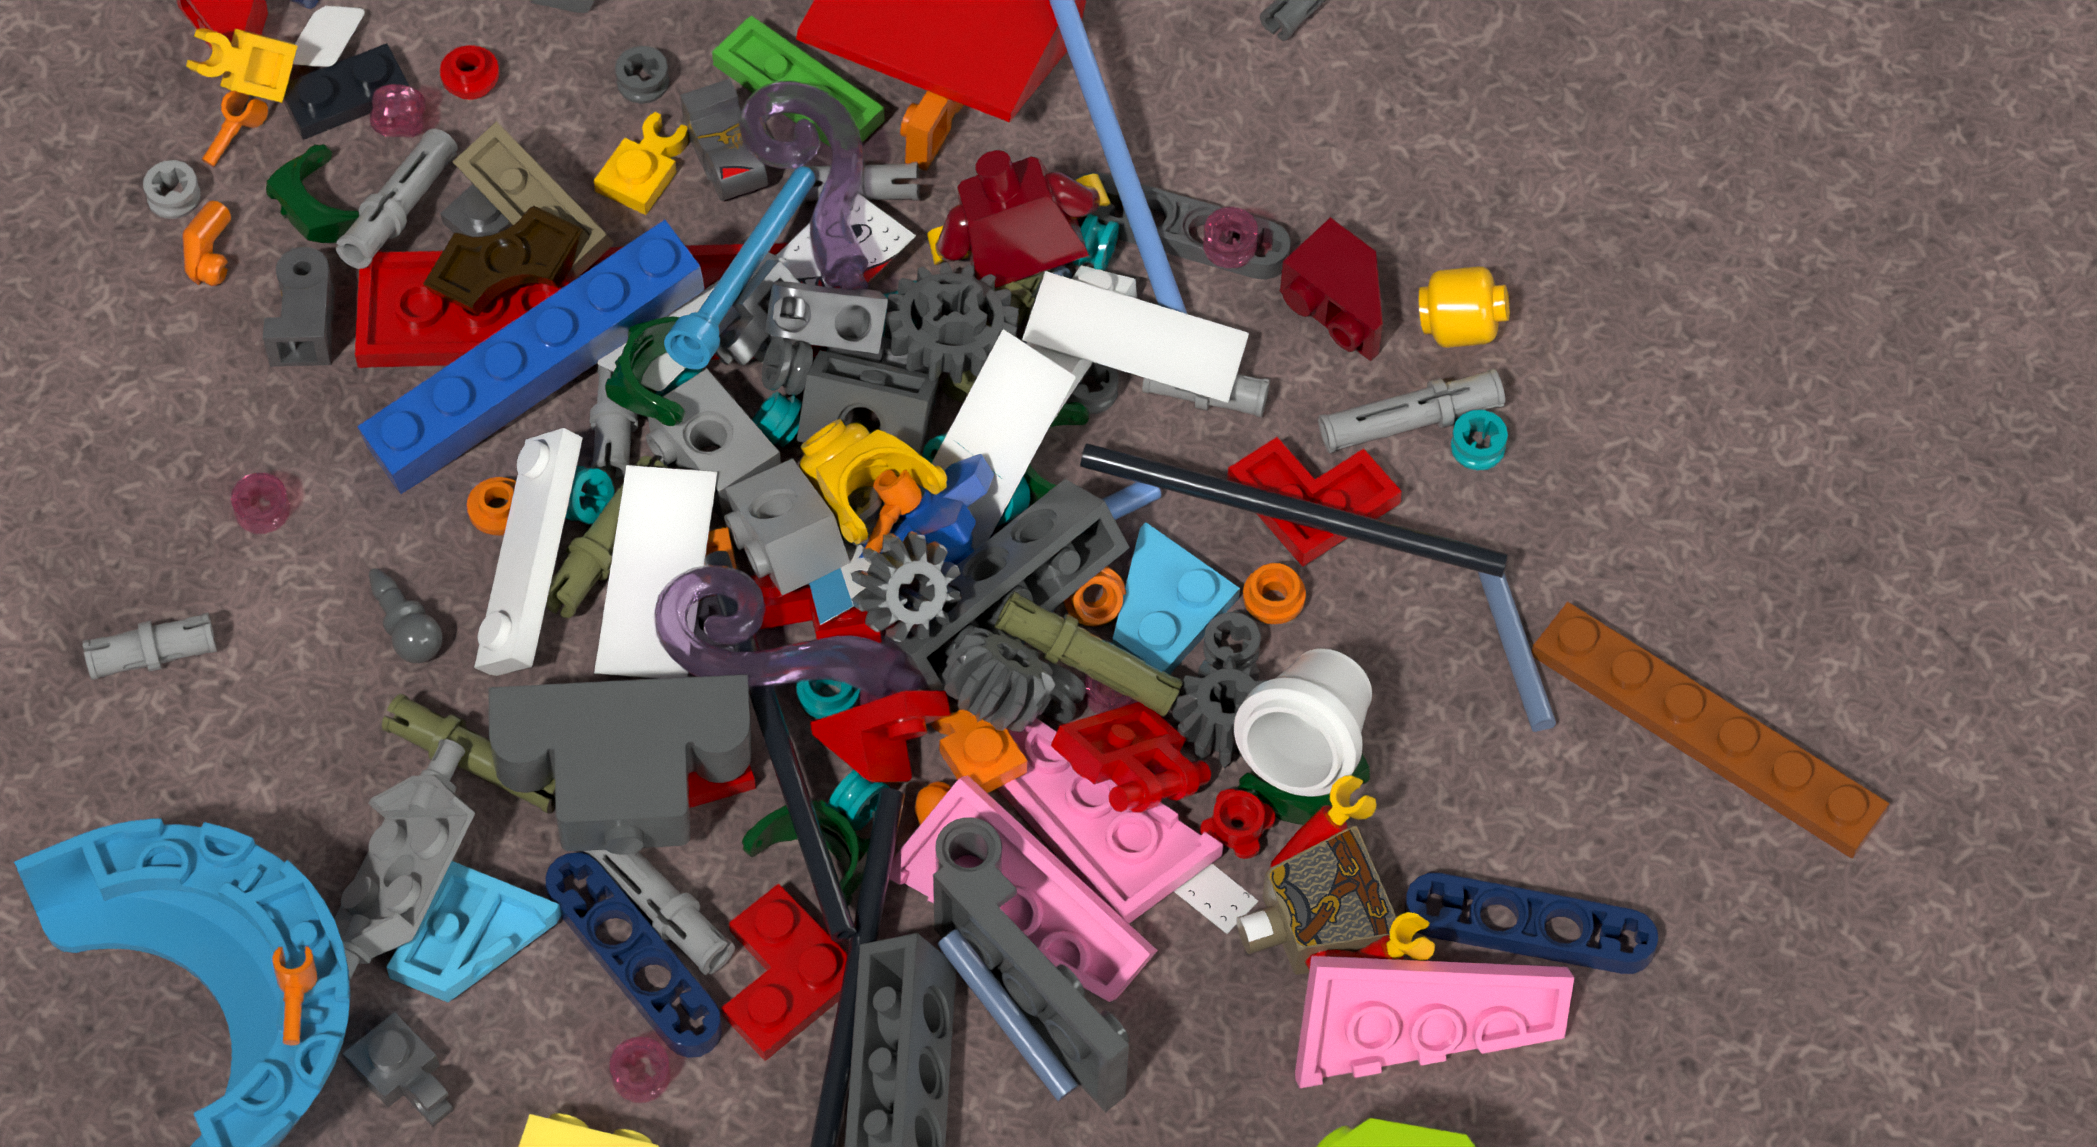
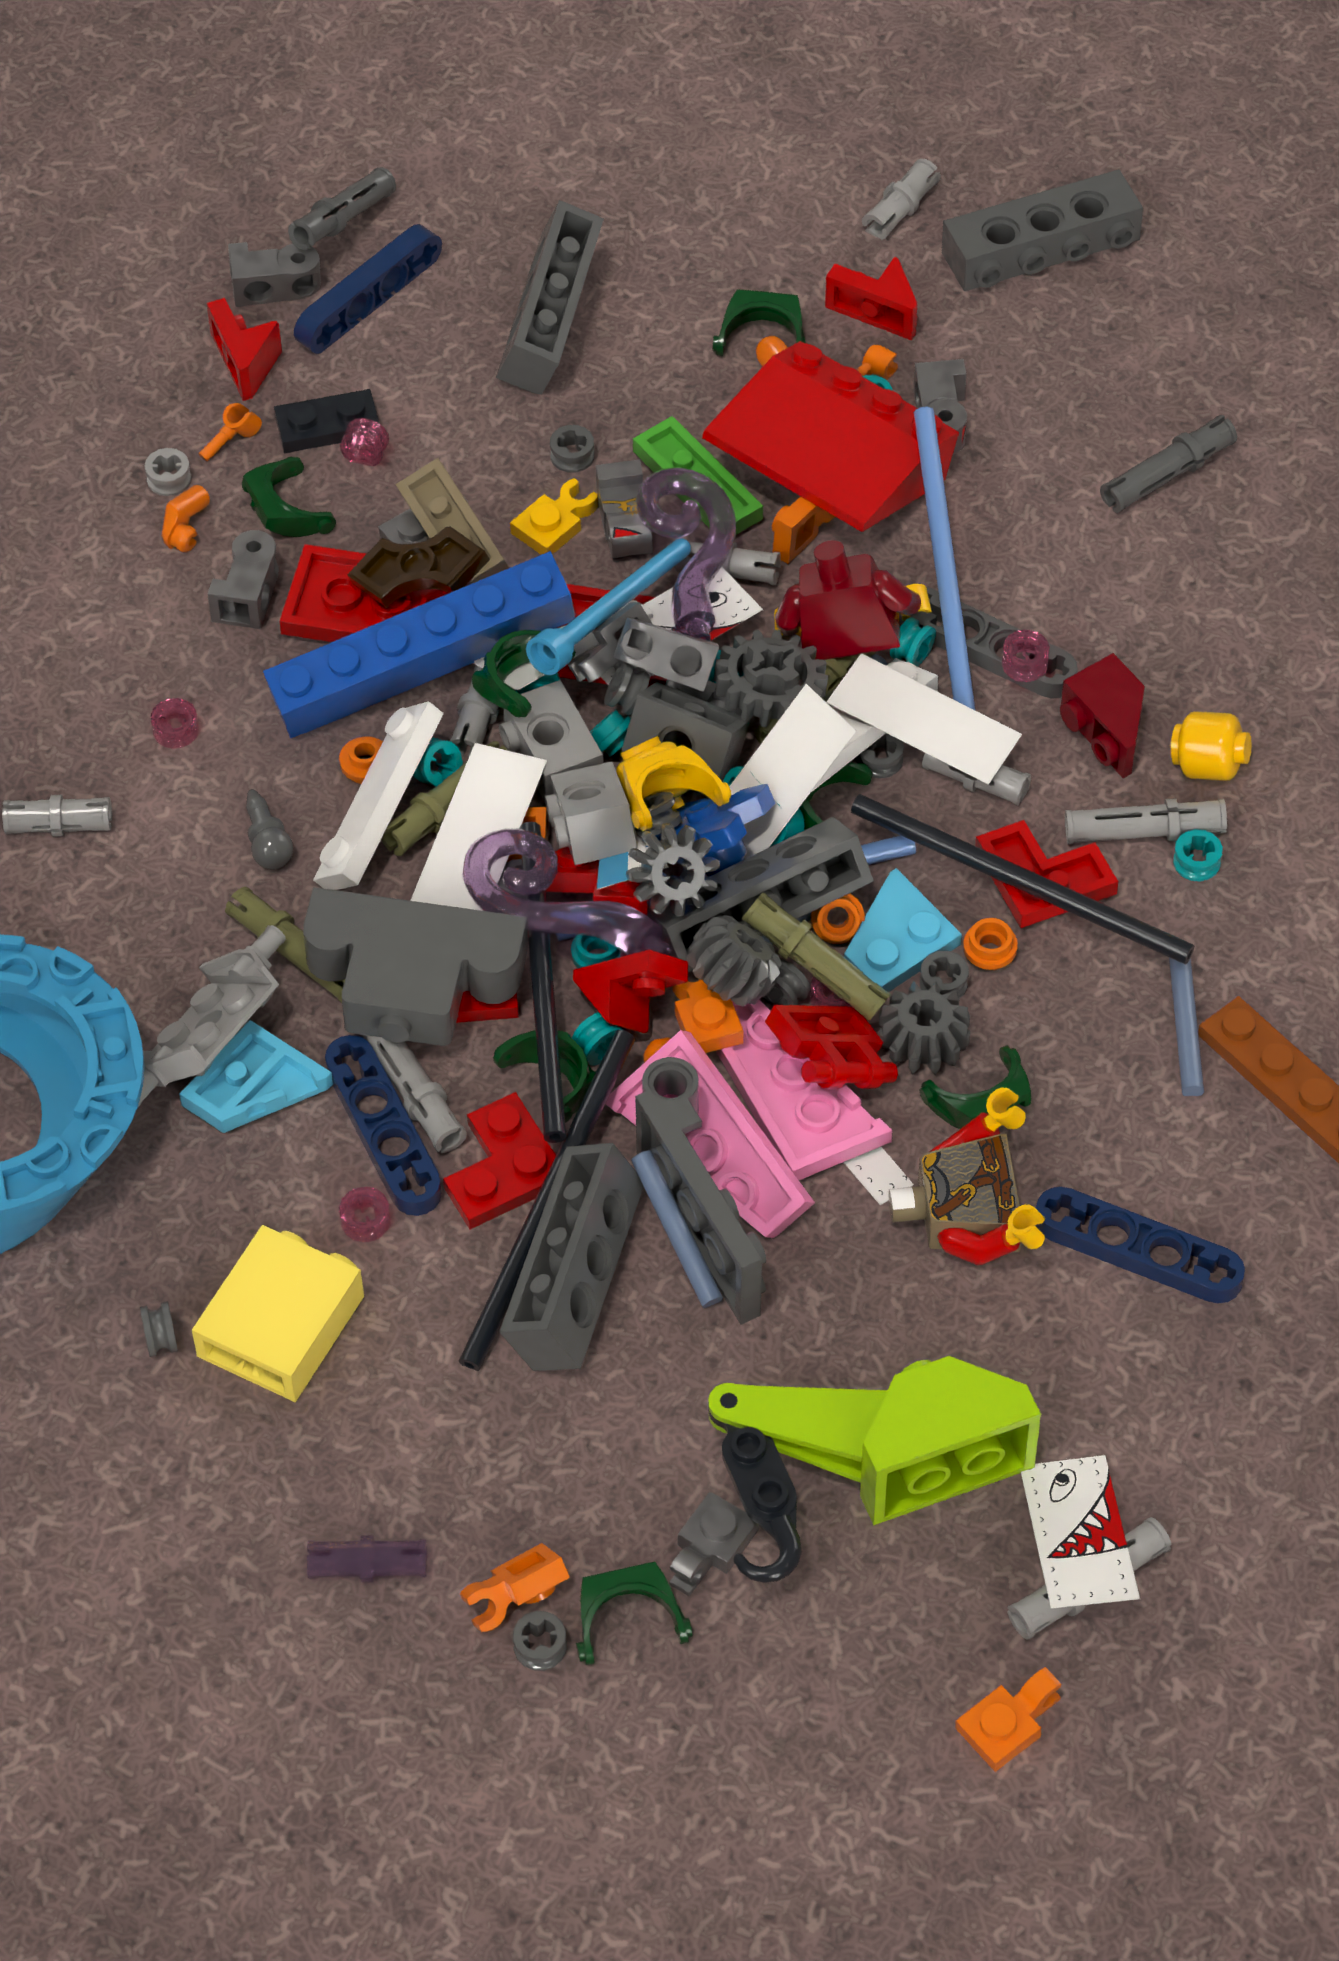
camera: 15 degrees right, 5 degrees down
(248, 64) = (253, 382): yellow plate -> none
(294, 985) = (95, 1080): orange hand -> none
(326, 35) = (322, 376): white sticker -> none
(385, 213) = (331, 516): light grey pin -> none
(399, 1065) = (171, 1172): flat silver plate -> none
(469, 84) = (435, 431): red plate -> none
(900, 497) = (689, 802): orange hand -> none
(1241, 806) = (916, 1105): red plate -> none
(1306, 723) = (981, 1041): white piece -> none
(1410, 1010) = (1008, 1289): bright pink wing -> none

